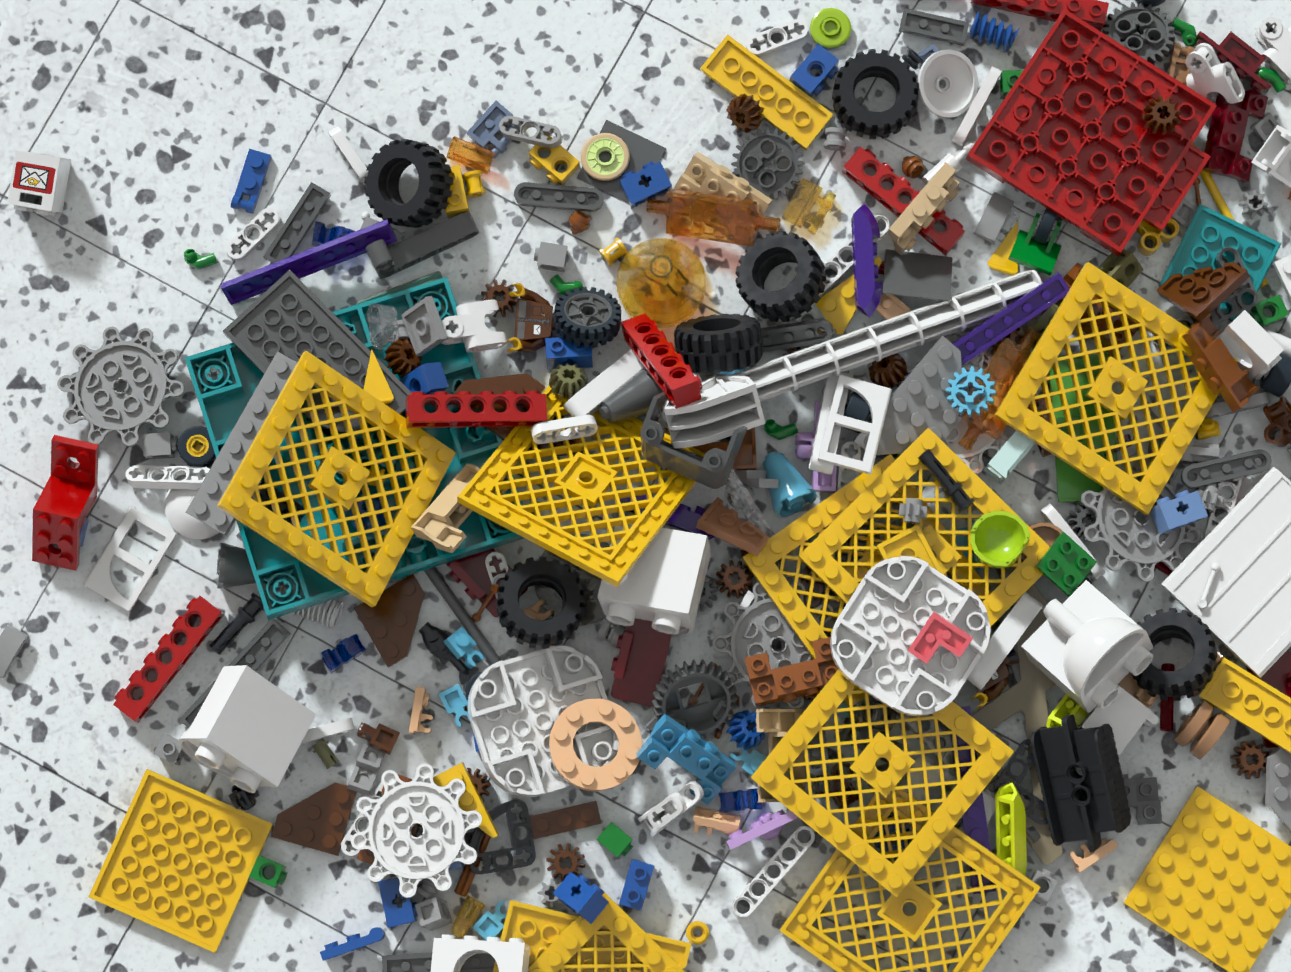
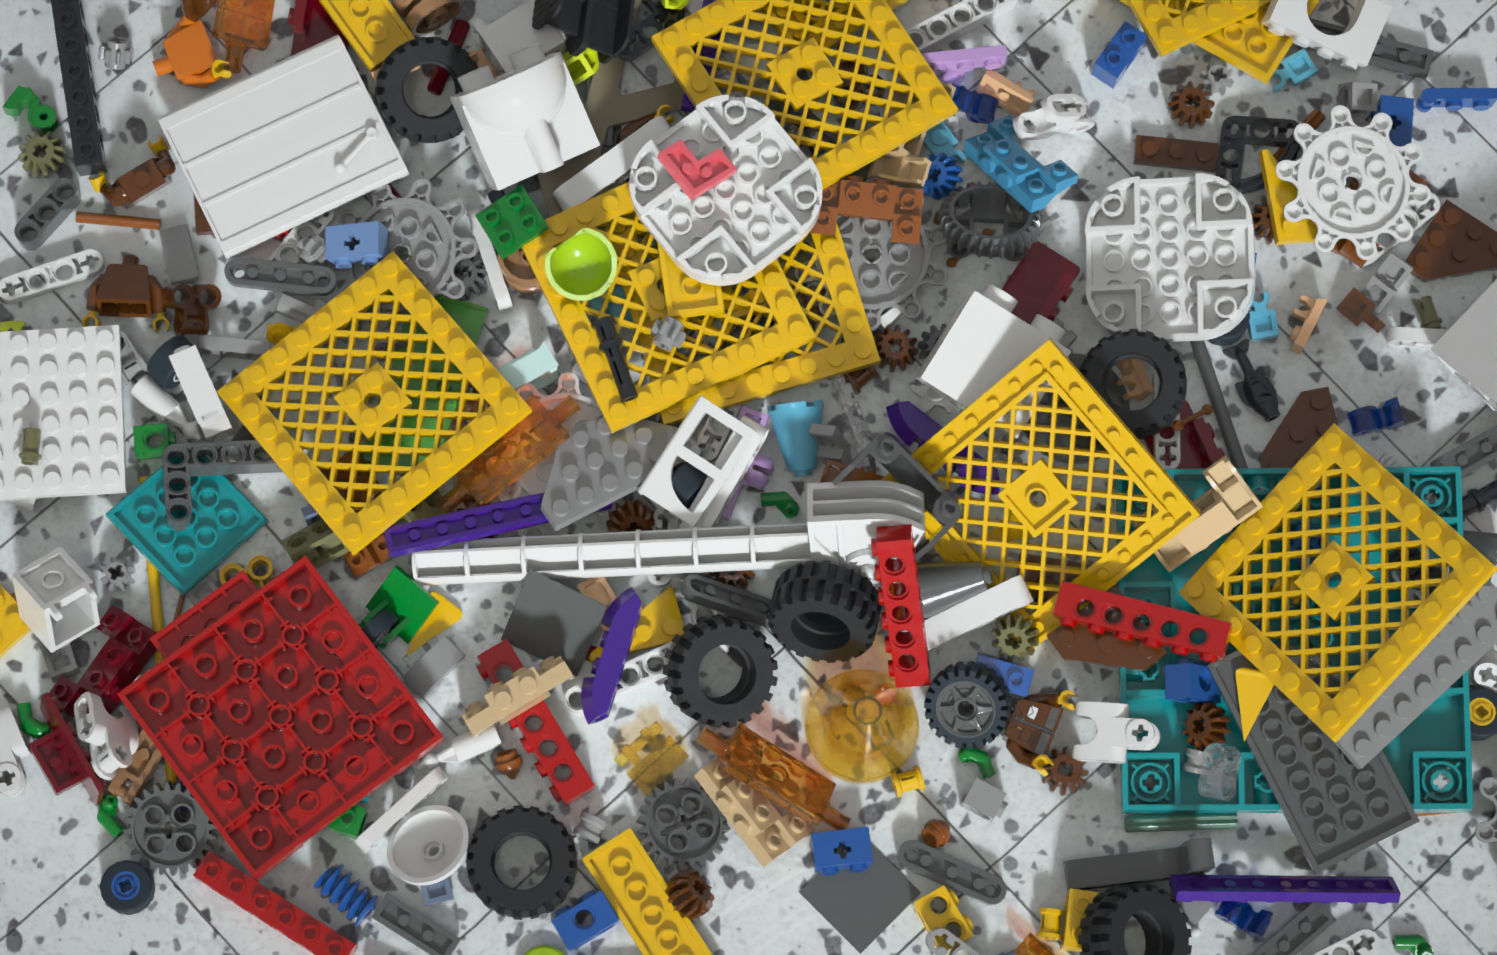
camera: 170 degrees left, 5 degrees down
(424, 326) = (1172, 748): light grey plate -> none
(461, 645) = (1235, 381): medium azure plate -> none
(466, 916) = (1319, 86): clear yellow hinge -> none
(577, 427) = (1043, 569): white beam -> none
(581, 897) = (1189, 52): blue brick -> none
(595, 777) = (1124, 249): light nougat plate -> none
(608, 170) = (874, 922): wheel -> none
(615, 840) = (1127, 110): green brick -> none
(730, 528) = (884, 400): nougat wing -> none
(912, 58) = (460, 890): black bush -> none
(980, 391) = (553, 437): medium azure gear -> none
(1153, 112) = (179, 698): reddish brown gear -> none
(1204, 290) = (225, 481): reddish brown plate -> none
(1218, 365) = (246, 384): dark orange bracket -> none

